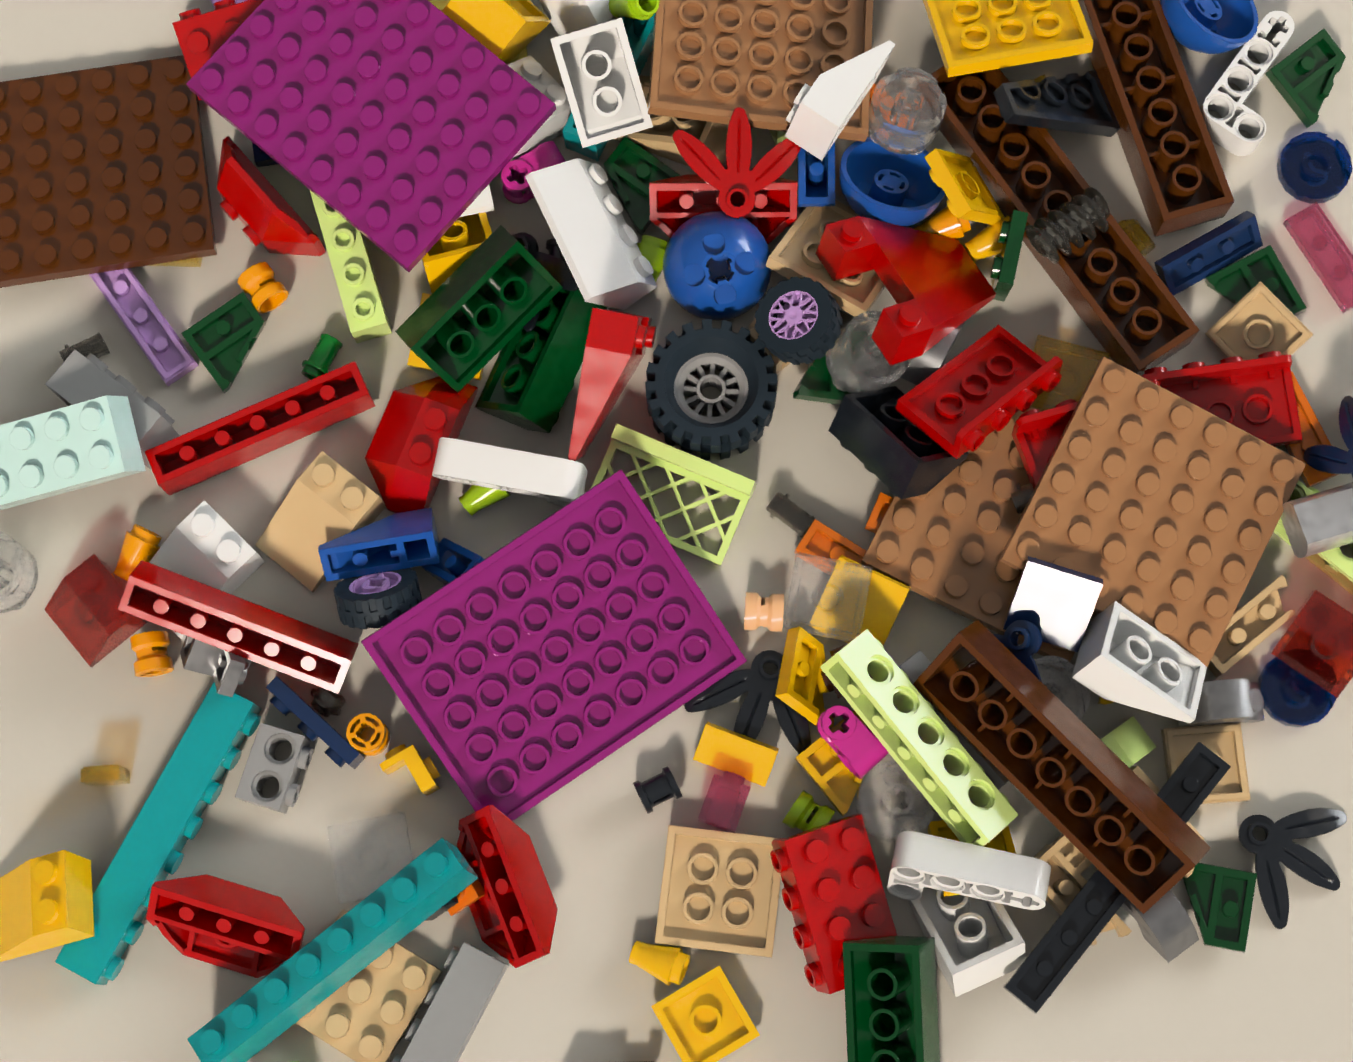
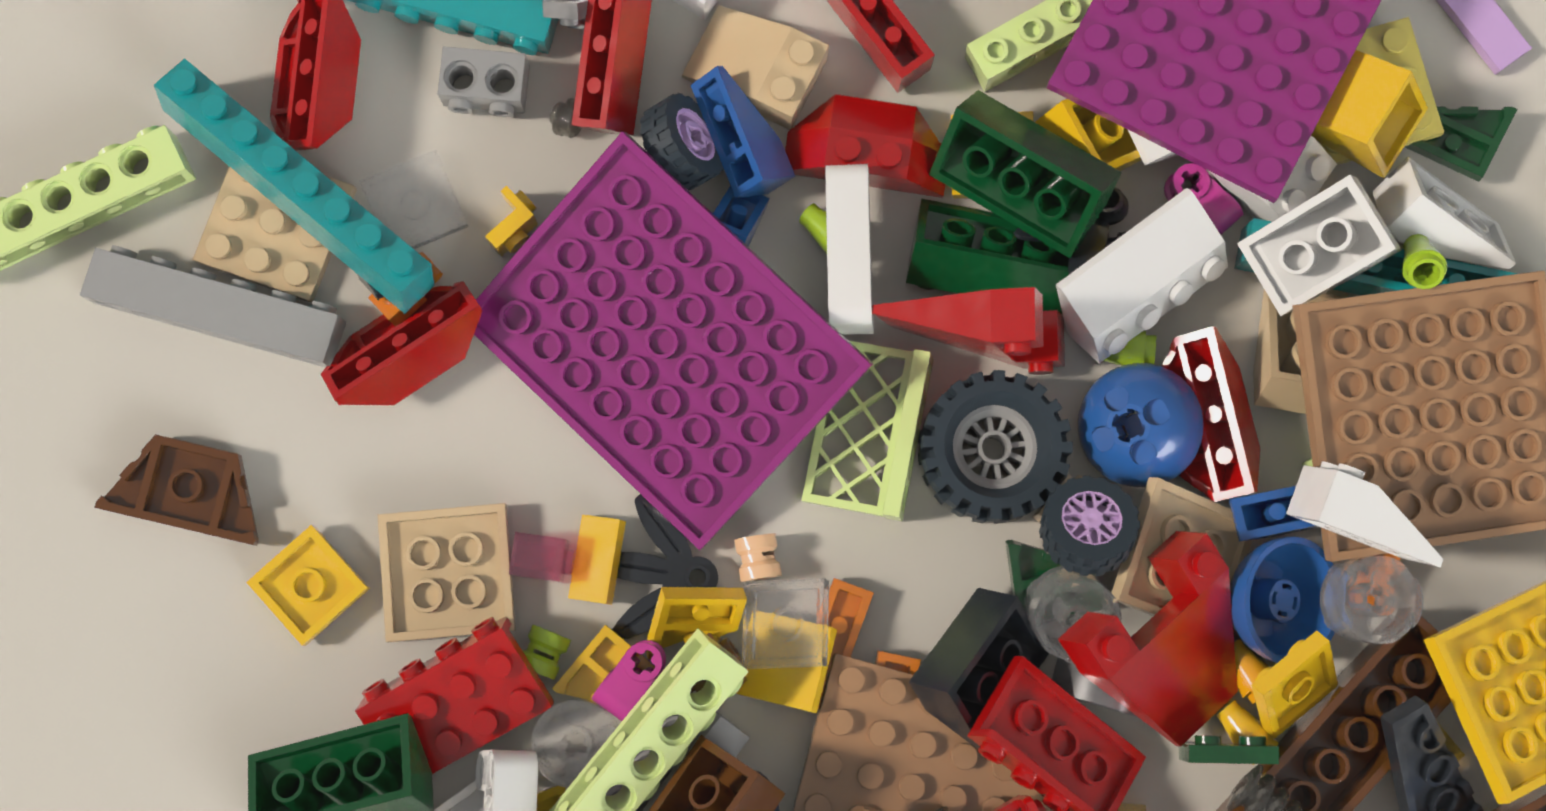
camera: 70 degrees right, 5 degrees up
(313, 724) = (536, 110): dark blue plate -> none
(321, 357) = (937, 23): green pin -> none
(370, 741) = (541, 176): light orange wheel -> none
(630, 172) = (1229, 307): dark green wing -> none
(657, 789) = (541, 483): black bush -> none
(661, 961) = (360, 528): yellow cone -> none
(738, 159) = (1268, 417): red plant -> none
(790, 513) = (875, 564): clear smoke pin -> none

